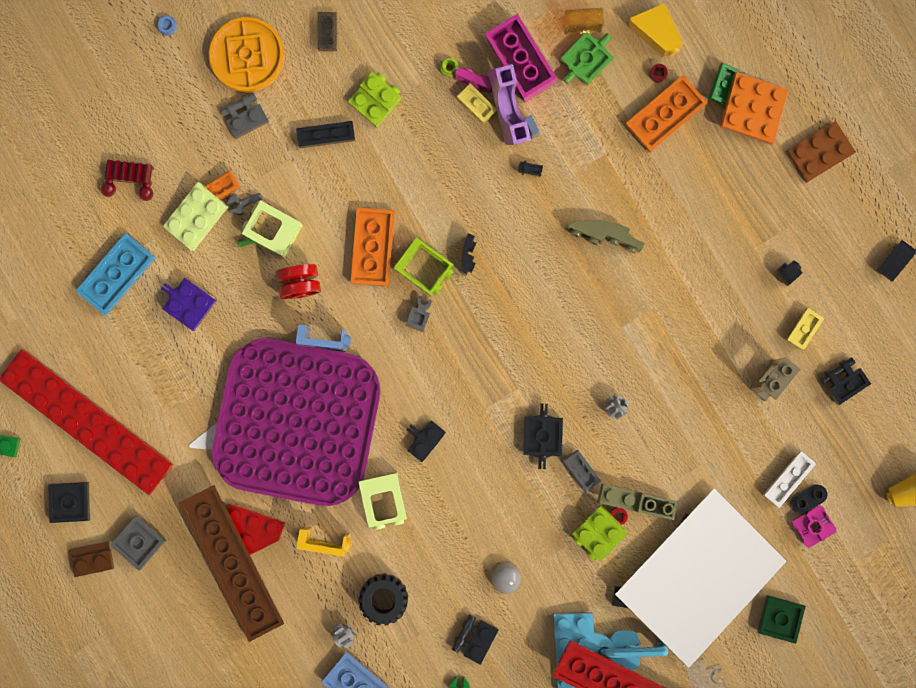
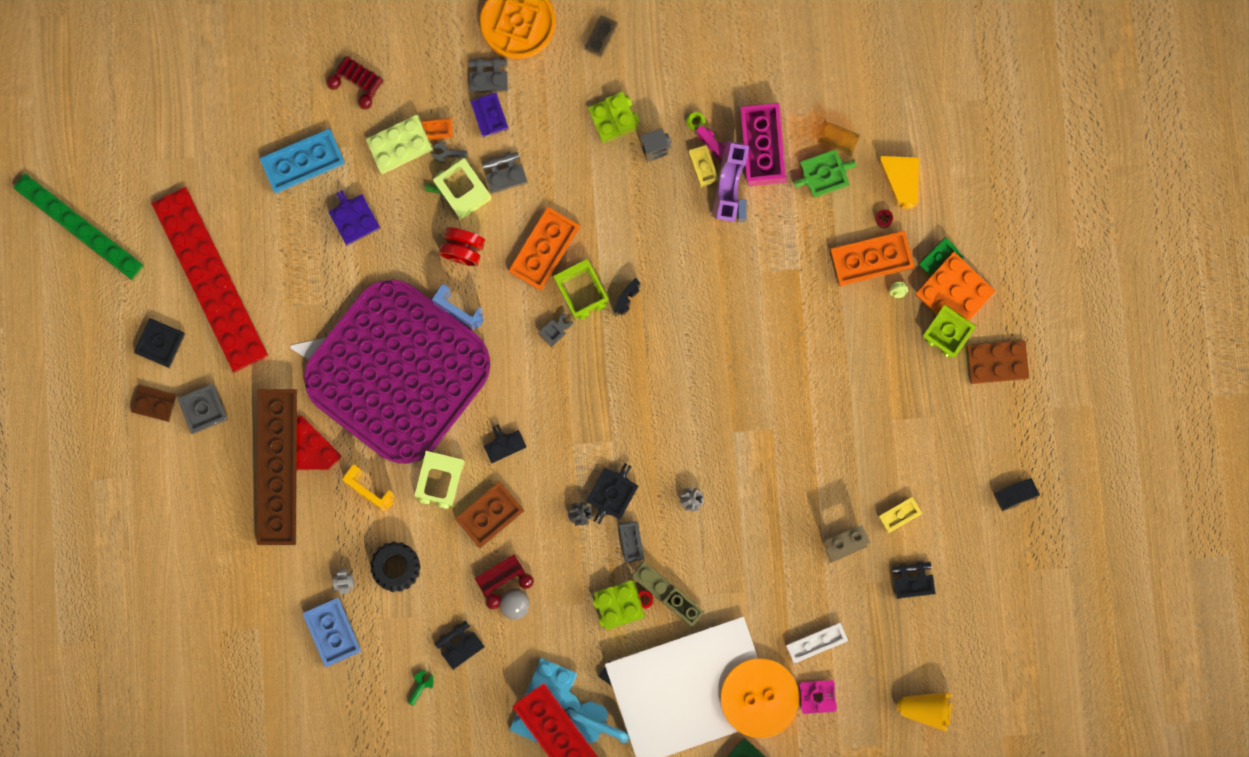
camera: 30 degrees right, 5 degrees down
(263, 150) = (489, 115): none -> dark purple plate
(306, 200) = (505, 178): none -> dark grey plate
(325, 134) = (553, 127): black plate -> none
(425, 105) = (655, 145): none -> dark grey brick
(443, 509) = (489, 515): none -> dark orange plate
(481, 558) = (498, 576): none -> dark red gear
(523, 469) = (579, 513): none -> dark grey gear
(529, 168) = (722, 248): black pin -> none
(597, 231) = (756, 334): olive slope -> none
(703, 130) = (898, 289): none -> yellowish green plate
(764, 553) = (759, 698): none -> light orange plate
(768, 145) = (949, 331): none -> lime plate
(789, 272) = (911, 456): black plate -> none
(809, 498) = (826, 670): black plate -> none

